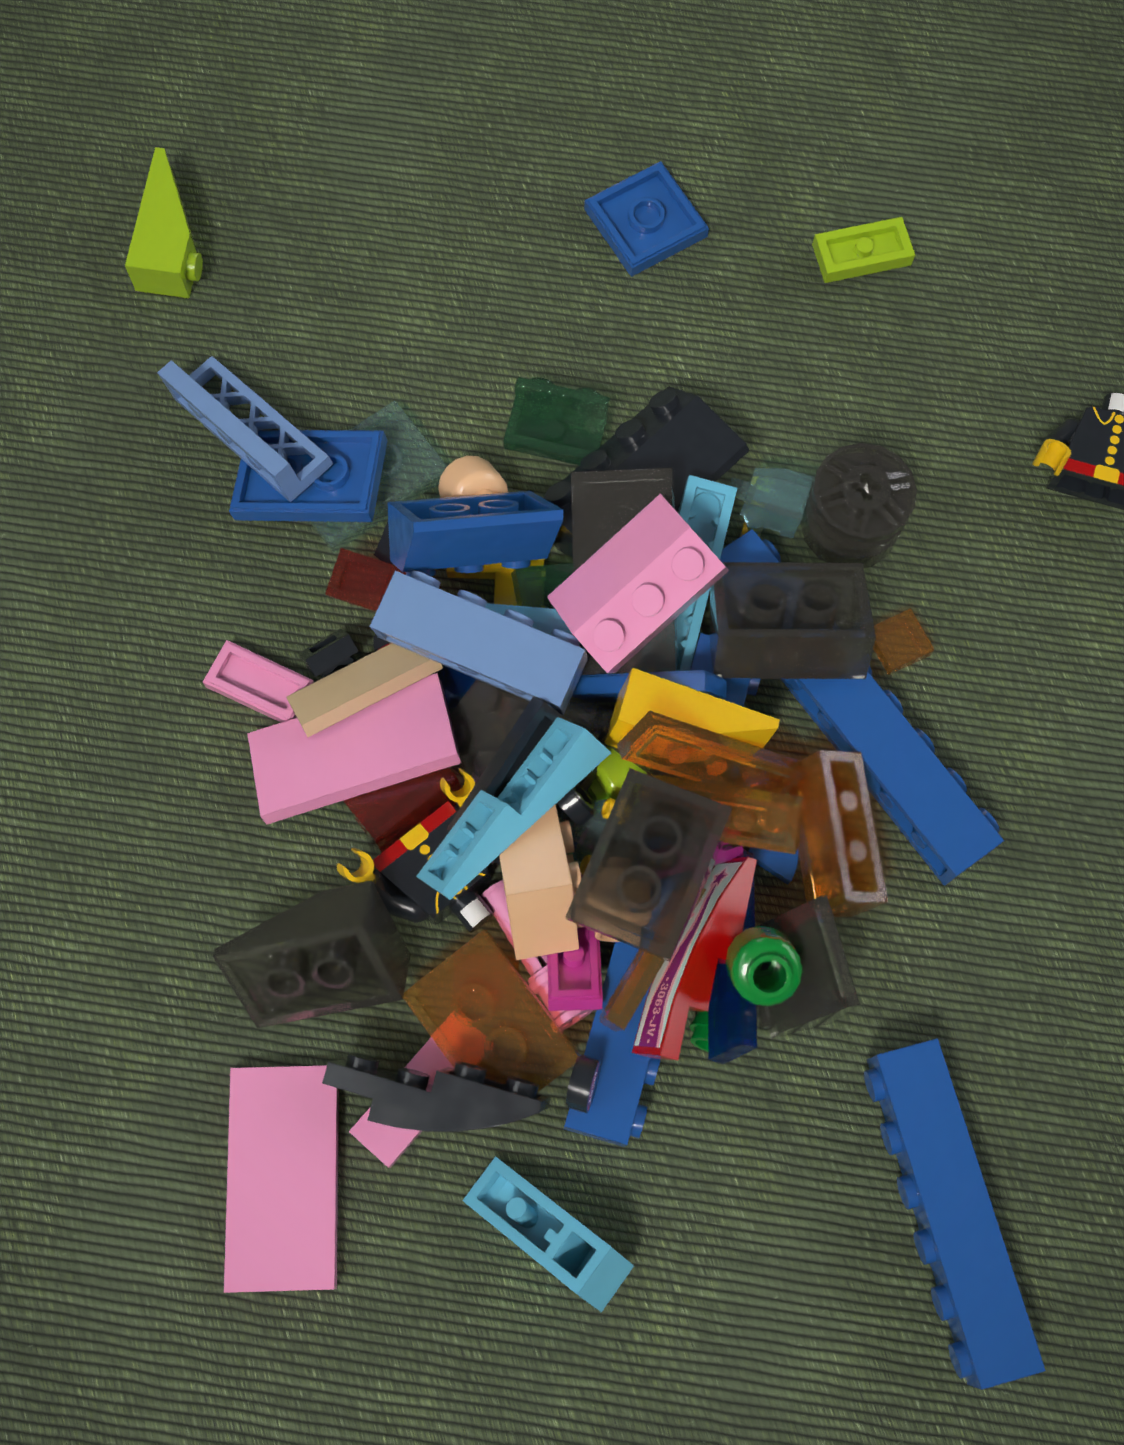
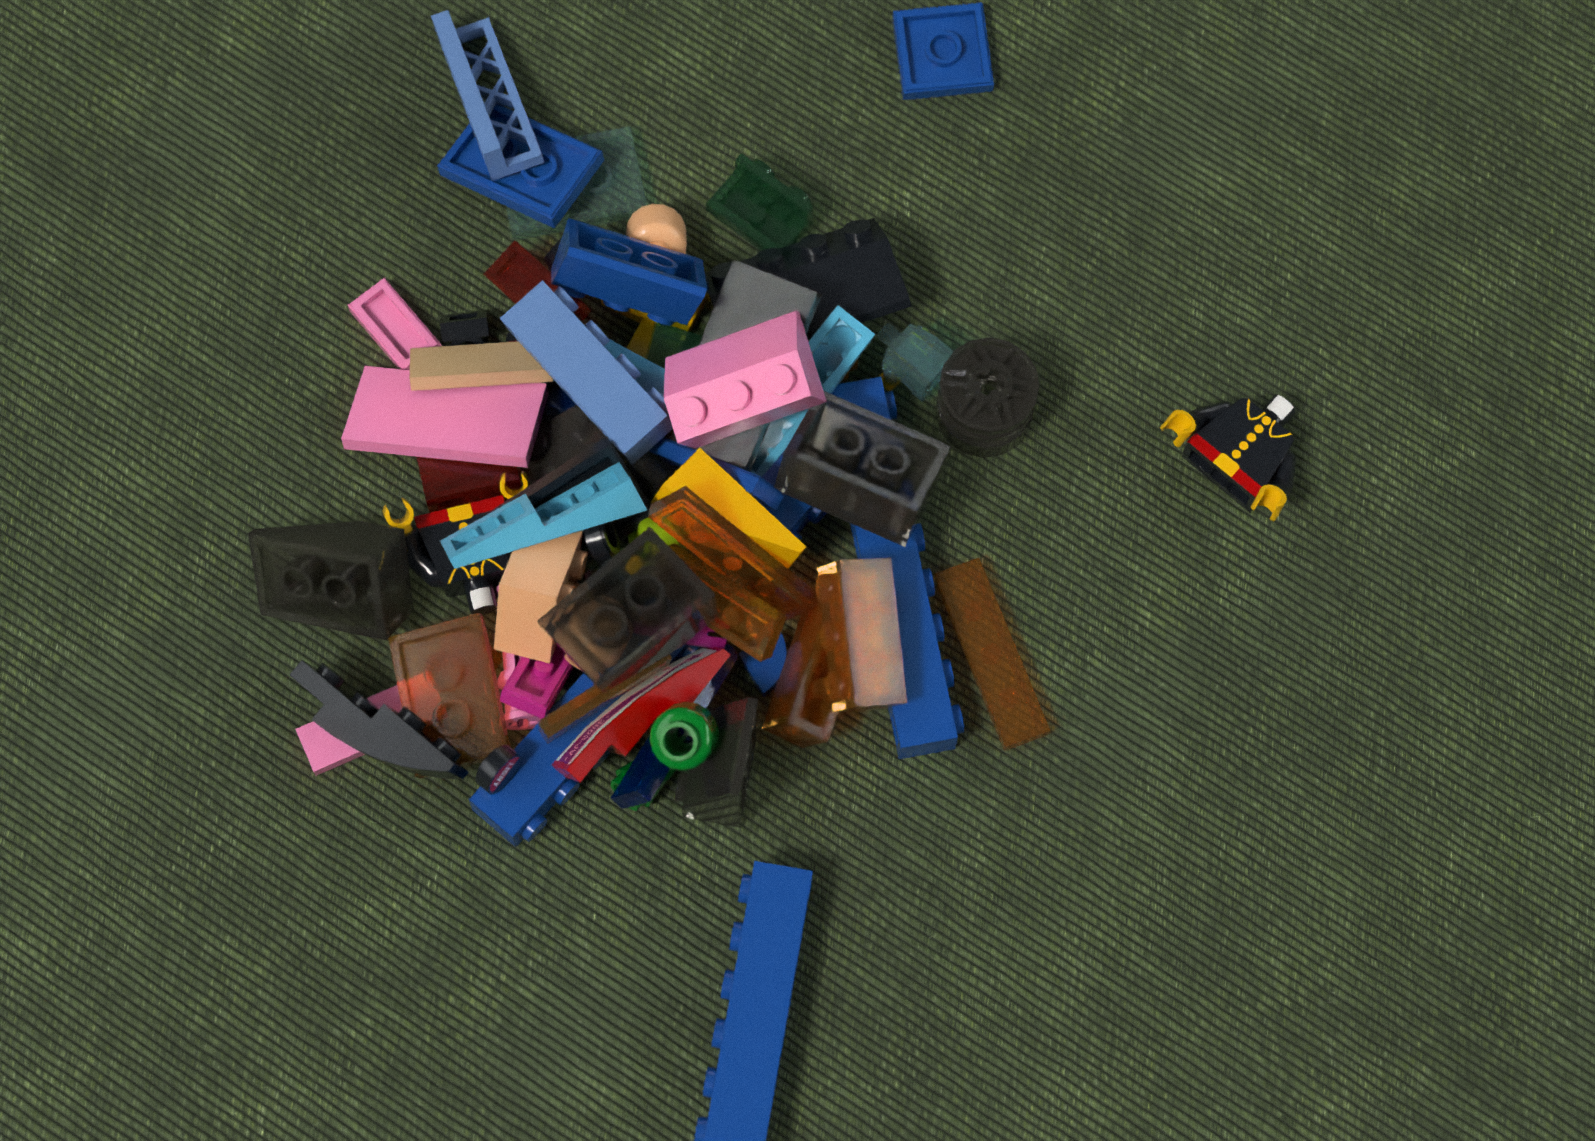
camera: 25 degrees right, 0 degrees up
(281, 1180) = (224, 743): bright pink tile -> none
(548, 1234) = (417, 882): medium azure slope -> none
(863, 249) = (1126, 165): lime plate -> none
(873, 783) = (861, 634): none -> clear orange brick
(901, 642) = (969, 533): clear orange tile -> none
(981, 747) = (991, 654): none -> clear orange tile

